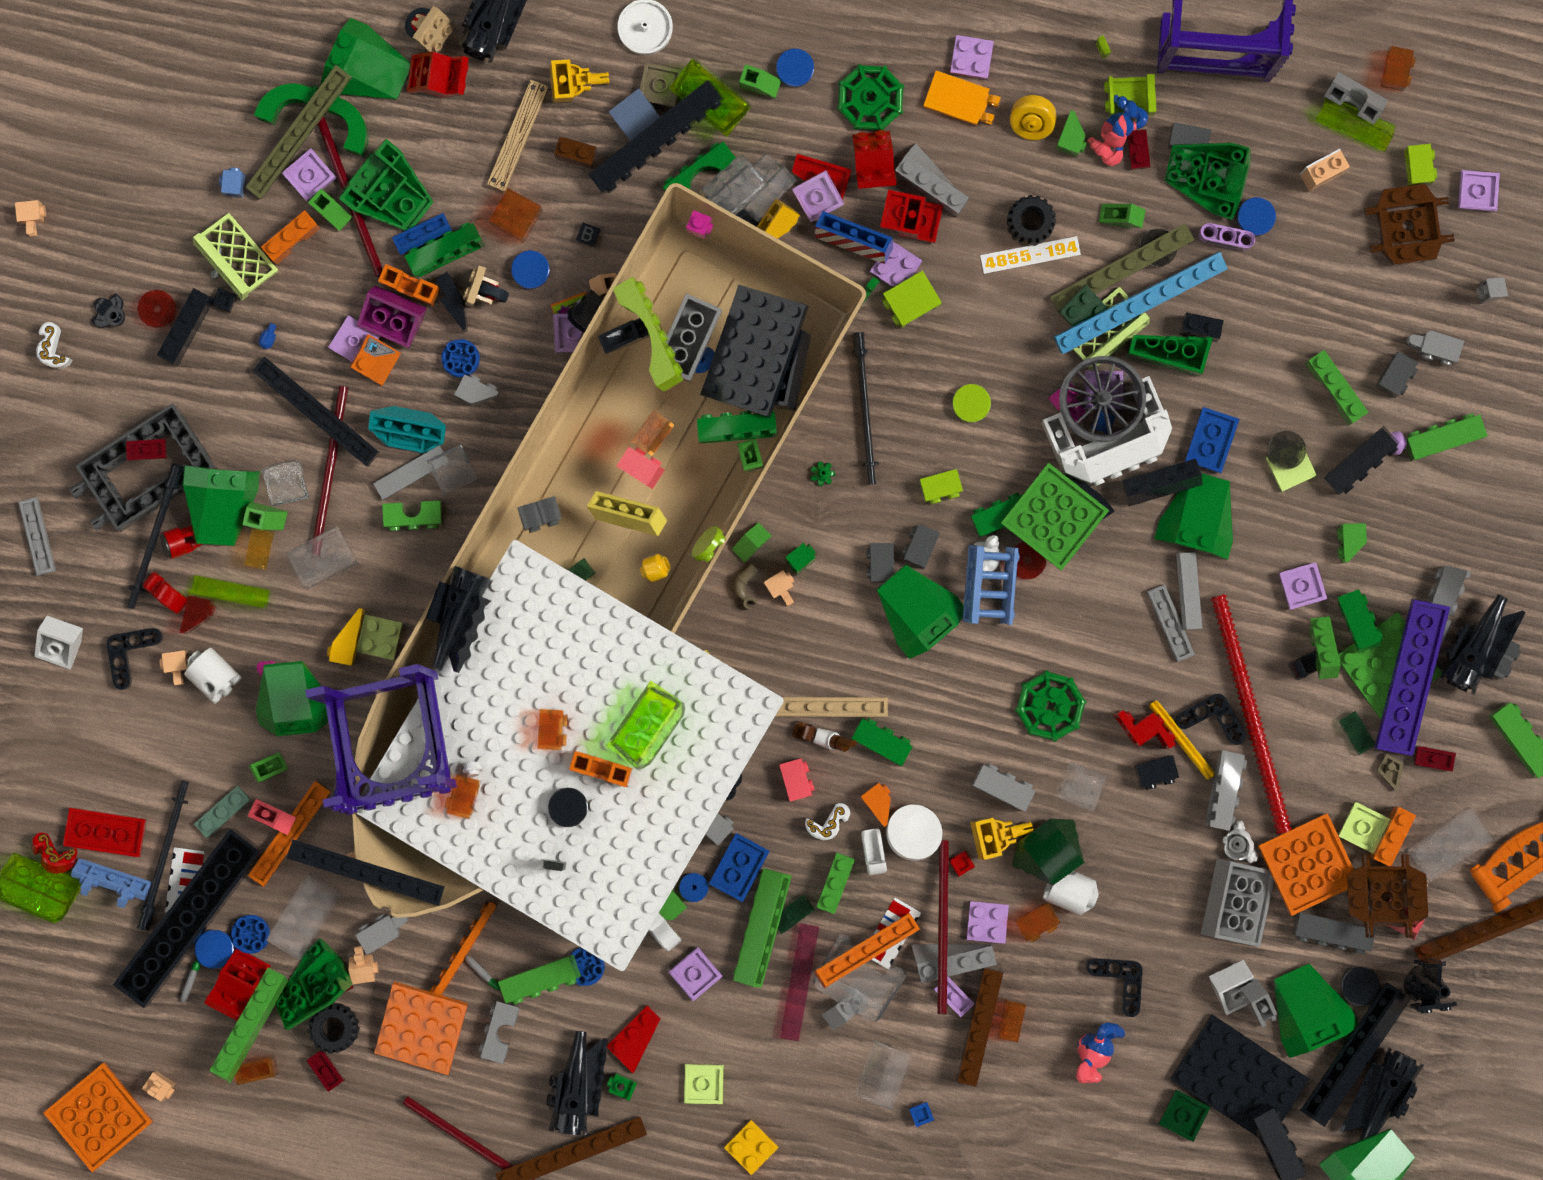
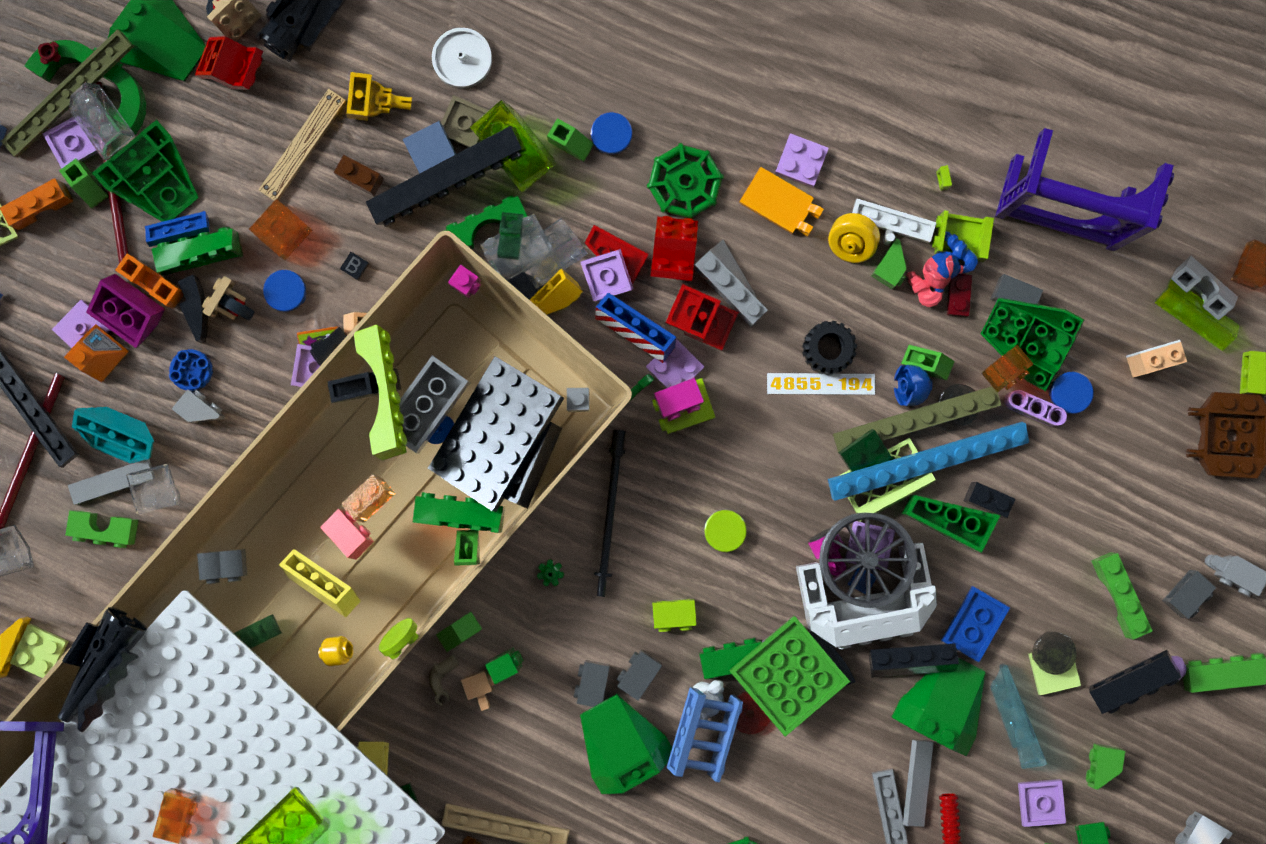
camera: 10 degrees right, 0 degrees up
(269, 96) = (43, 50): none -> dark red plate
(333, 150) = (99, 119): none -> clear slope
(726, 178) = (510, 236): none -> clear green slope
(819, 307) = (578, 400): none -> light grey brick
(906, 291) = (678, 399): none -> dark pink brick
(1068, 95) = (896, 222): none -> white plate
(1113, 239) = (913, 385): none -> blue cylinder
(1193, 206) = (1008, 368): none -> clear orange brick
(1264, 516) = (1016, 720): none -> clear light blue wedge

